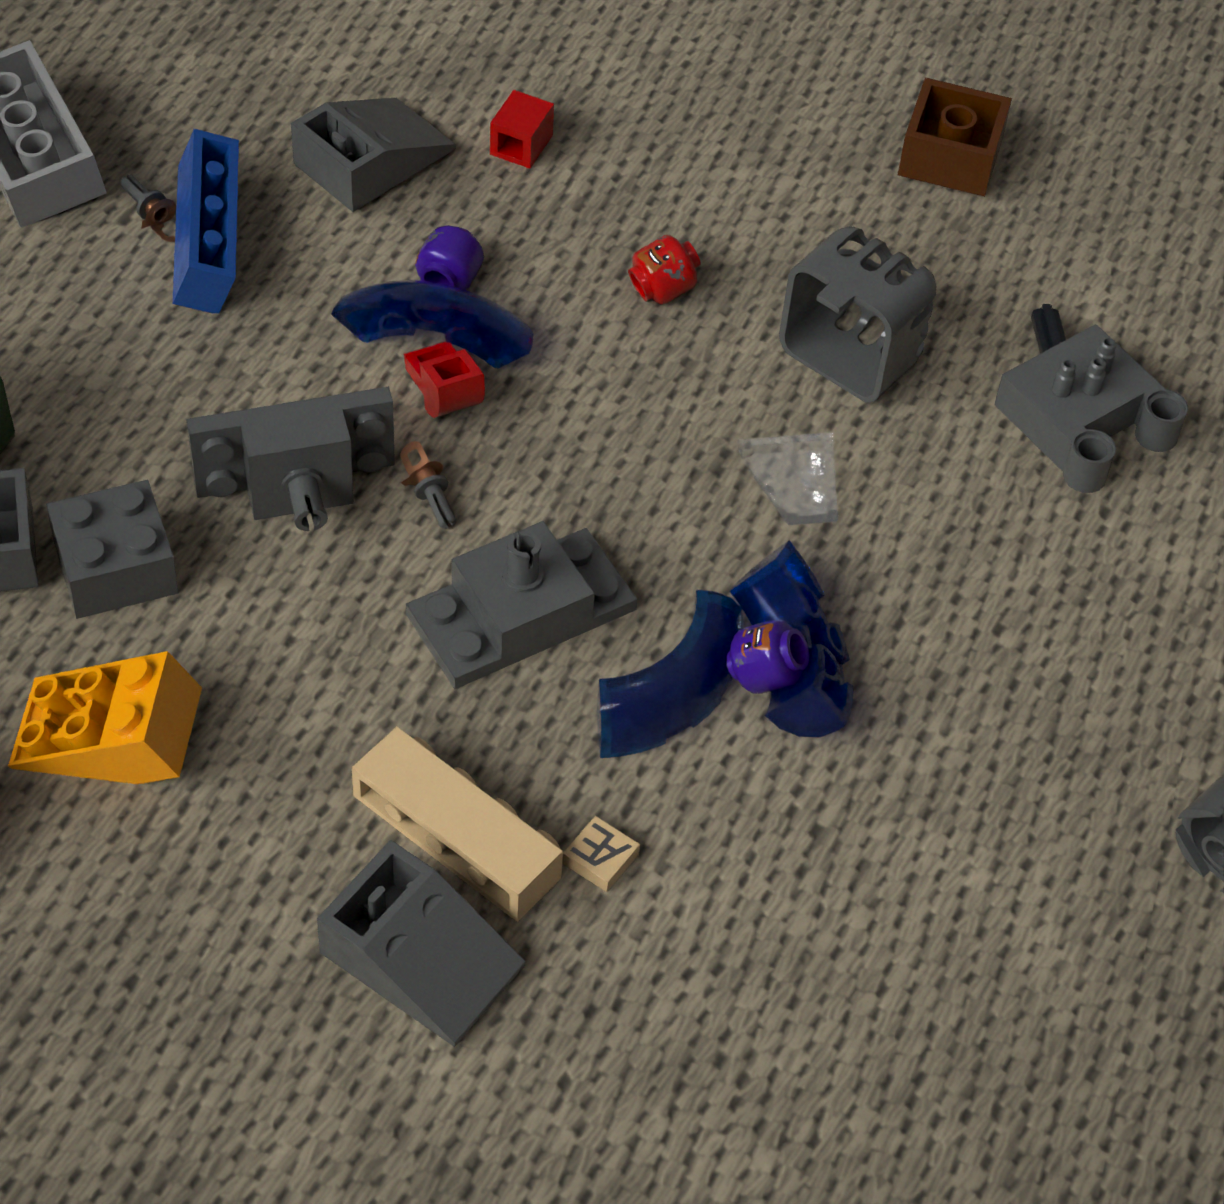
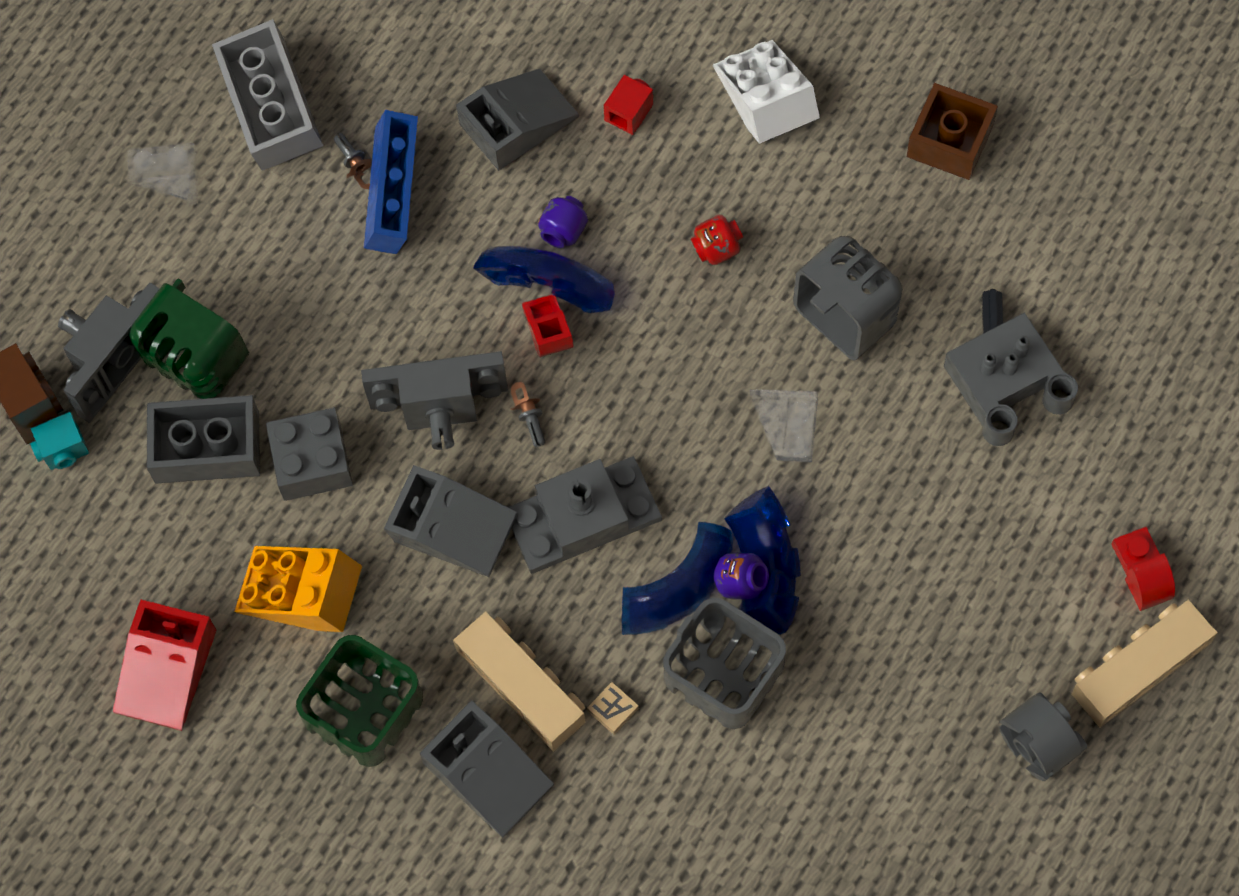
camera: 15 degrees right, 15 degrees up
(195, 795) = (354, 653): none -> dark green piece
(328, 617) = (449, 521): none -> dark grey slope
(706, 109) = (768, 90): none -> white slope
(738, 804) = (712, 616): none -> dark grey piece

